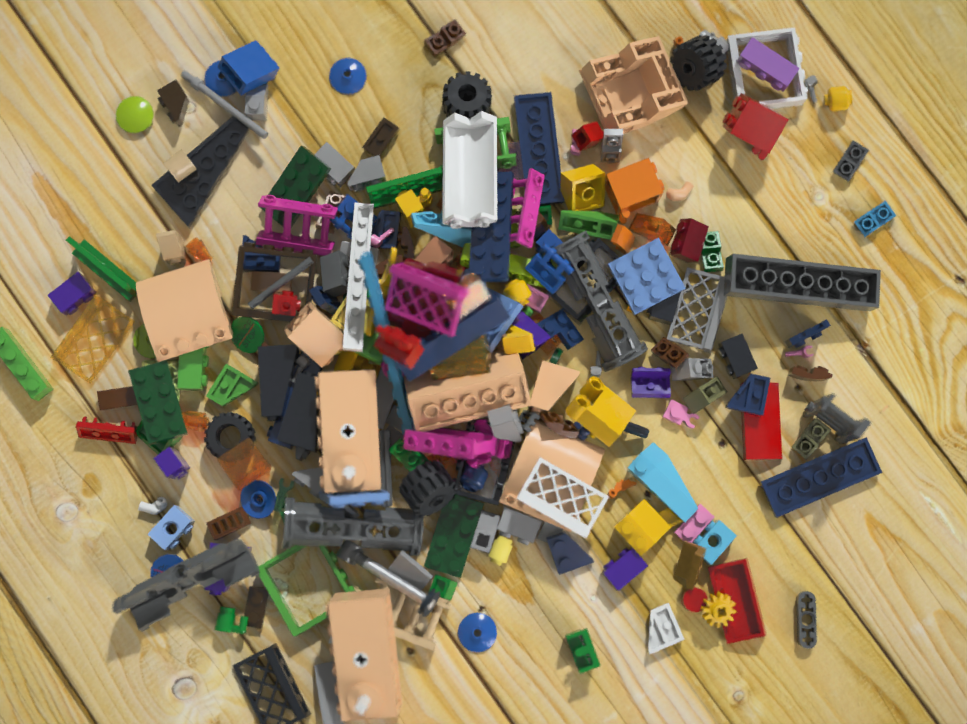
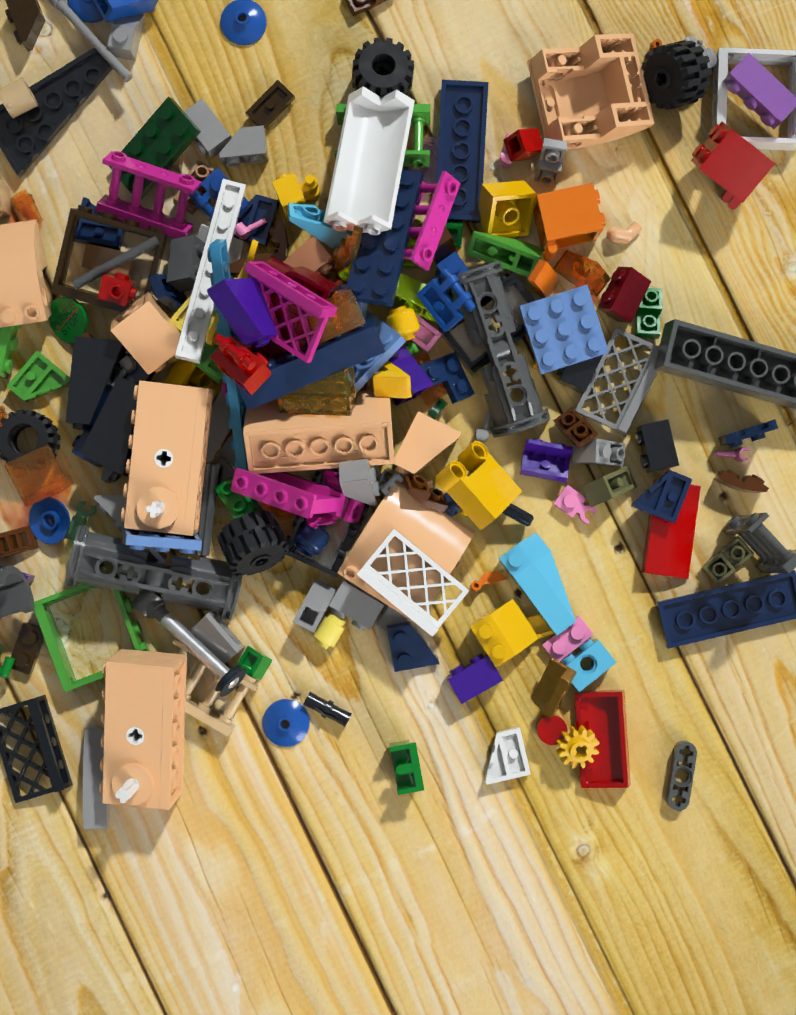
camera: 10 degrees right, 5 degrees up
(386, 192) = (261, 172): green fence -> none
(395, 303) = (244, 310): none -> dark purple slope
(454, 536) = (276, 604): dark green plate -> none
(464, 242) = (348, 249): none -> clear orange slope
(509, 614) = (327, 709): none -> black pin

